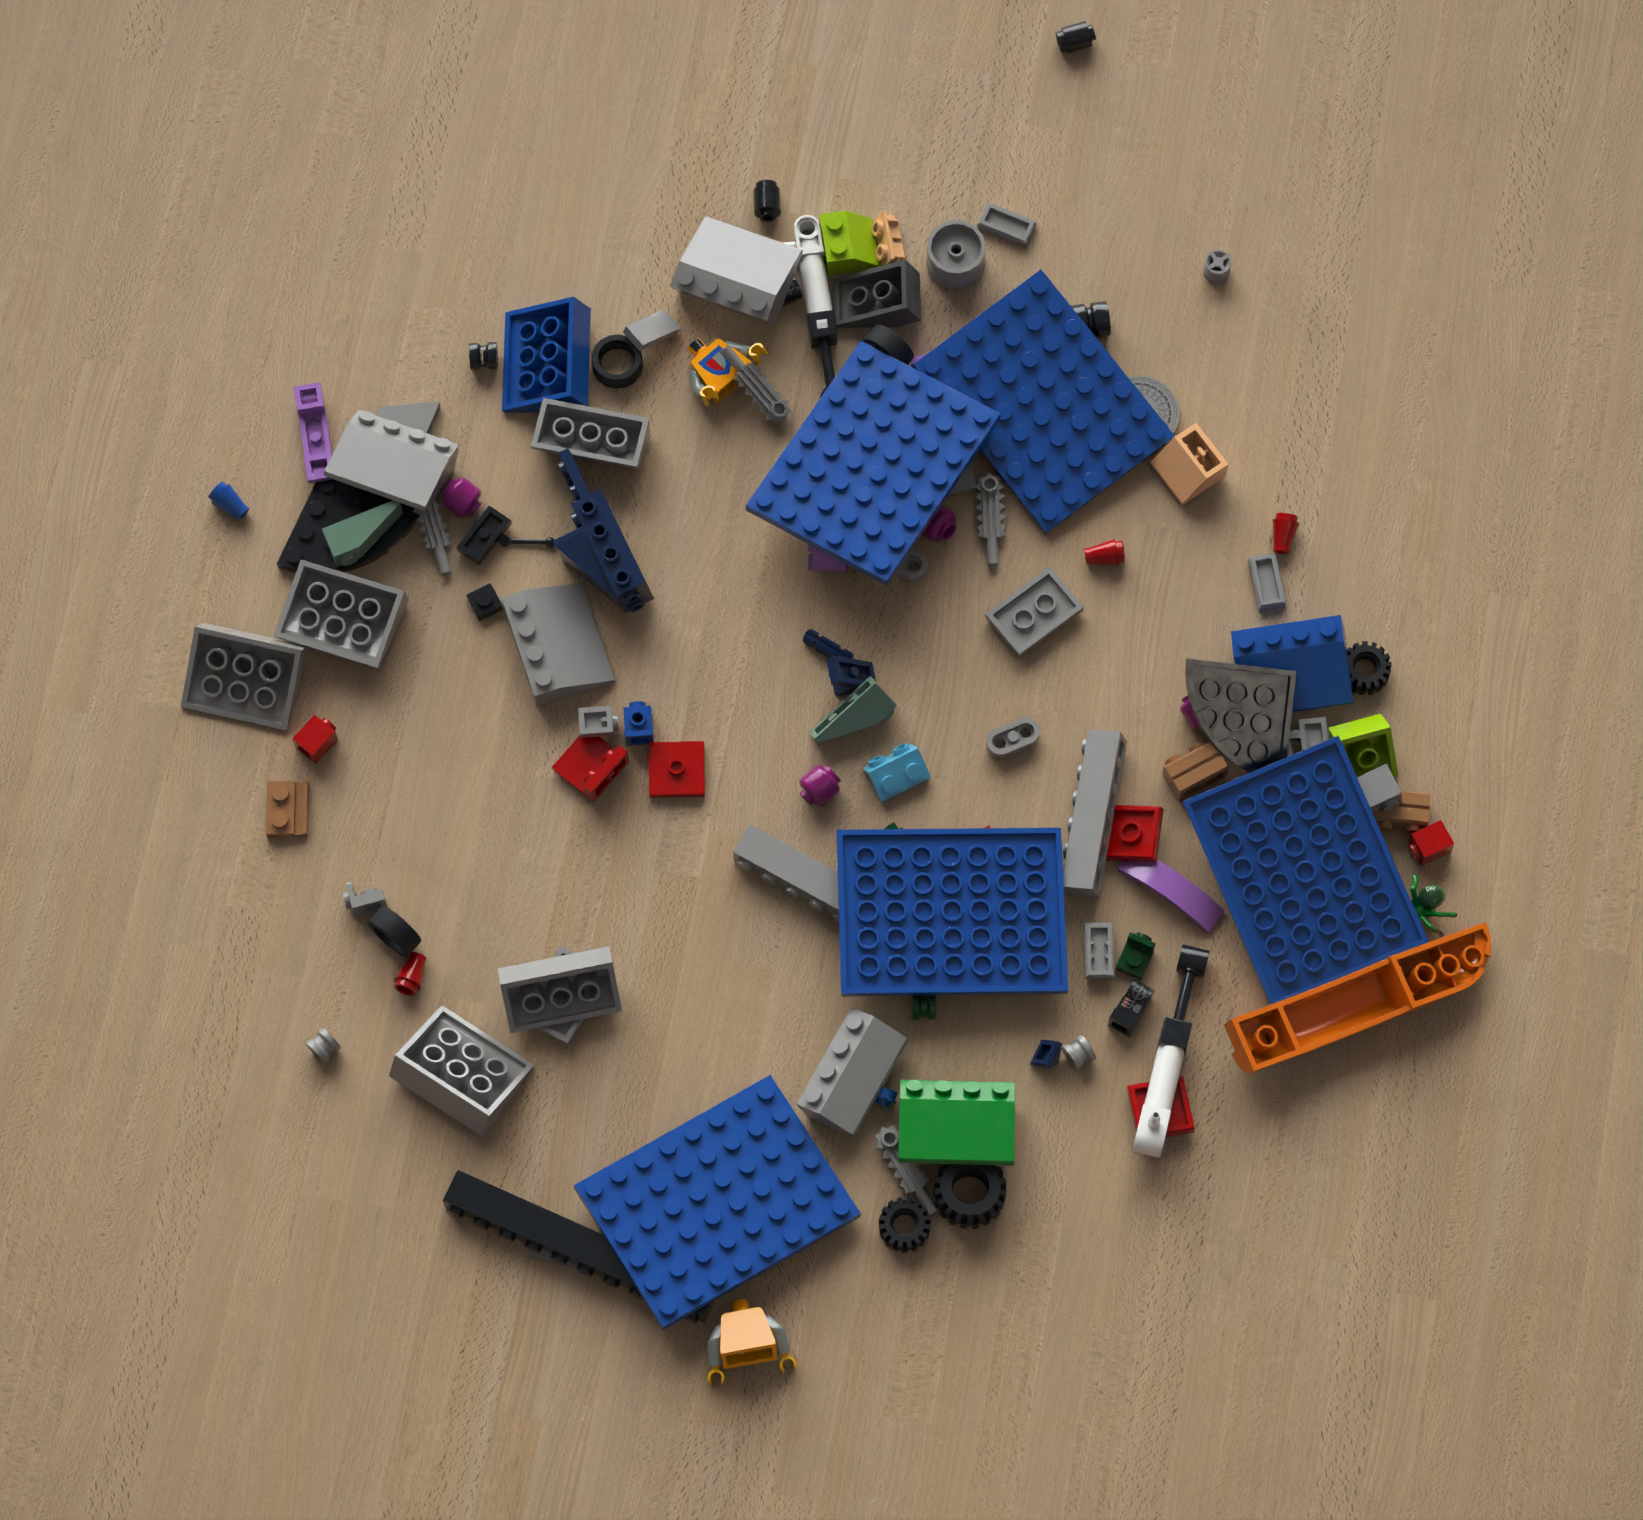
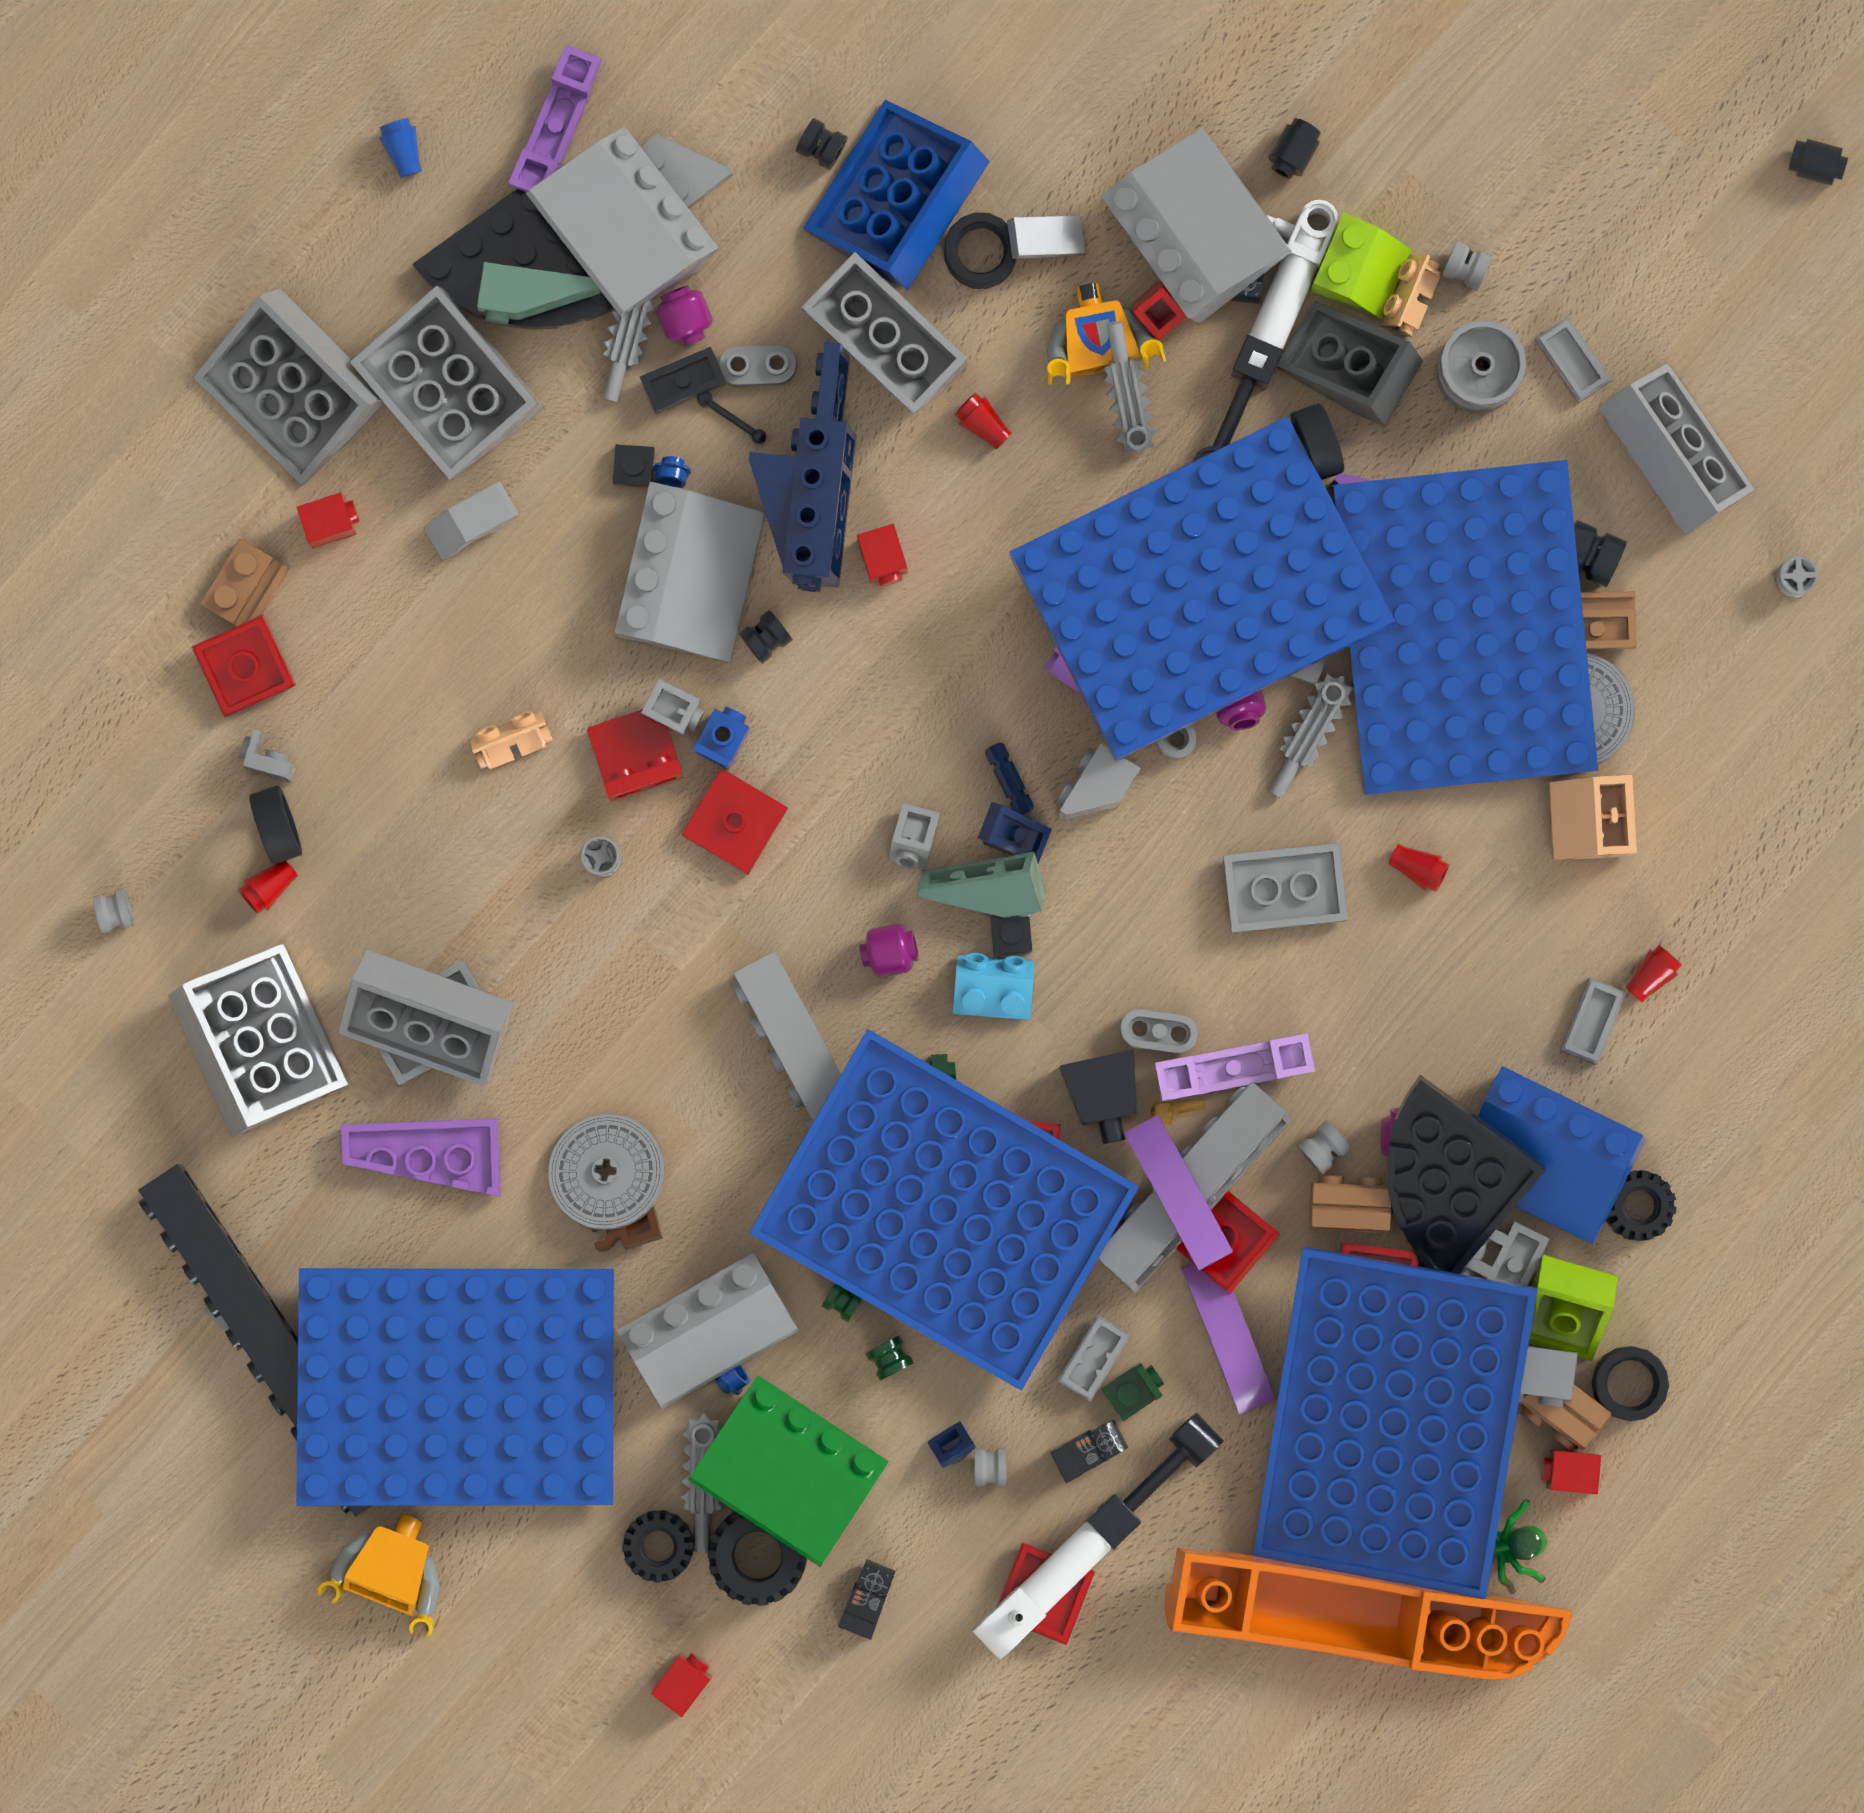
camera: 30 degrees right, 15 degrees up
(315, 853) = (243, 665): none -> red plate
(403, 687) = (470, 520): none -> light grey slope
(501, 808) = (496, 742): none -> light nougat hinge
(509, 587) = (671, 472): none -> blue plate
(526, 504) = (757, 368): none -> light grey plate
(608, 829) = (596, 853): none -> light grey wheel
(614, 1071) = (439, 1152): none -> medium lavender wing
(628, 648) = (765, 636): none -> black wheel
(668, 563) = (882, 555): none -> red brick
(679, 454) = (982, 420): none -> red cone
(745, 329) = (1158, 310): none -> red brick
(749, 1015) = (623, 1196): none -> light grey piece
(765, 1041) = (636, 1234): none -> reddish brown plate
(792, 714) = (913, 837): none -> light grey bracket
(883, 614) = (1100, 786): none -> light grey slope
(886, 736) = (1010, 934): none -> black plate
(910, 206) = (1467, 265): none -> light grey wheel
(973, 1298) = (682, 1683): none -> red brick
(974, 1025) = (889, 1358): none -> dark green wheel
(1002, 791) = (1103, 1092): none -> black torso
(1046, 782) = (1166, 1110): none -> clear yellow hand
(1055, 1179) = (867, 1599): none -> black leg
(1070, 734) = (1234, 1067): none -> lavender slope
(1087, 817) = (1178, 1192): none -> medium lavender slope
(1099, 237) = (1676, 448): none -> light grey slope
(1127, 351) = (1609, 620): none -> medium nougat plate
(1156, 746) = (1324, 1147): none -> light grey wheel
(1439, 754) = (1658, 1373): none -> black tyre

